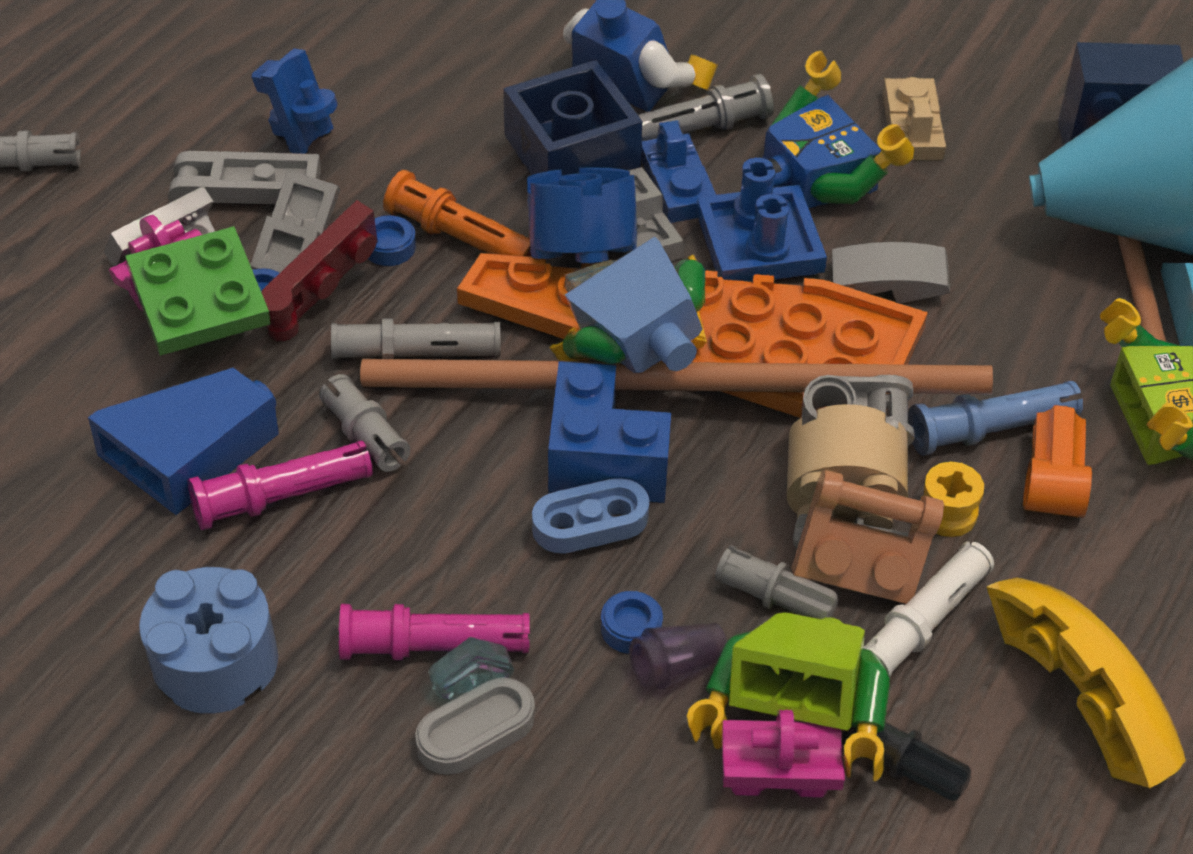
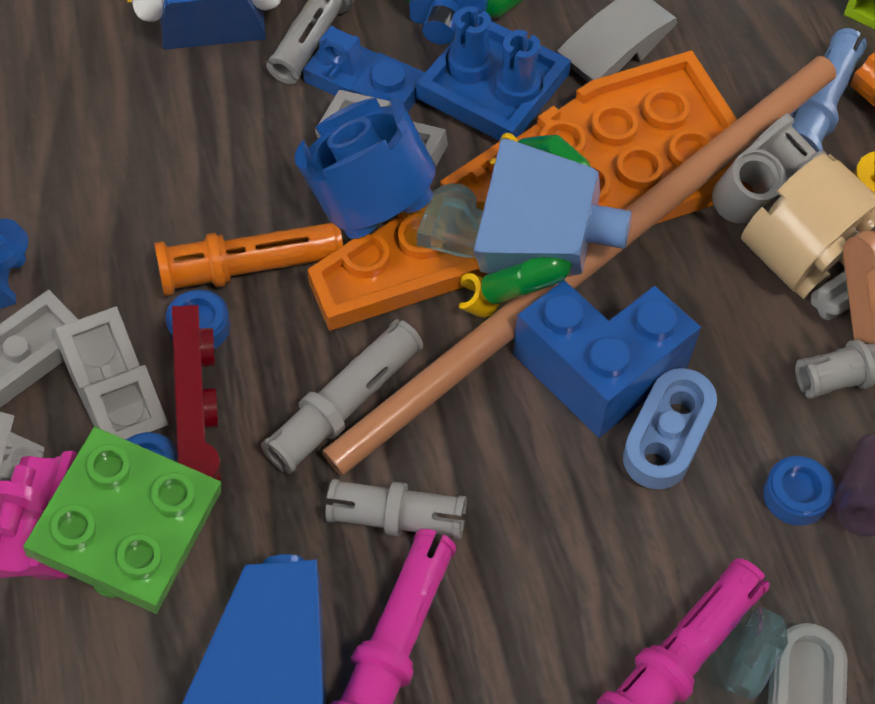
camera: 45 degrees left, 10 degrees up
(572, 122) = (249, 96): dark blue brick -> none

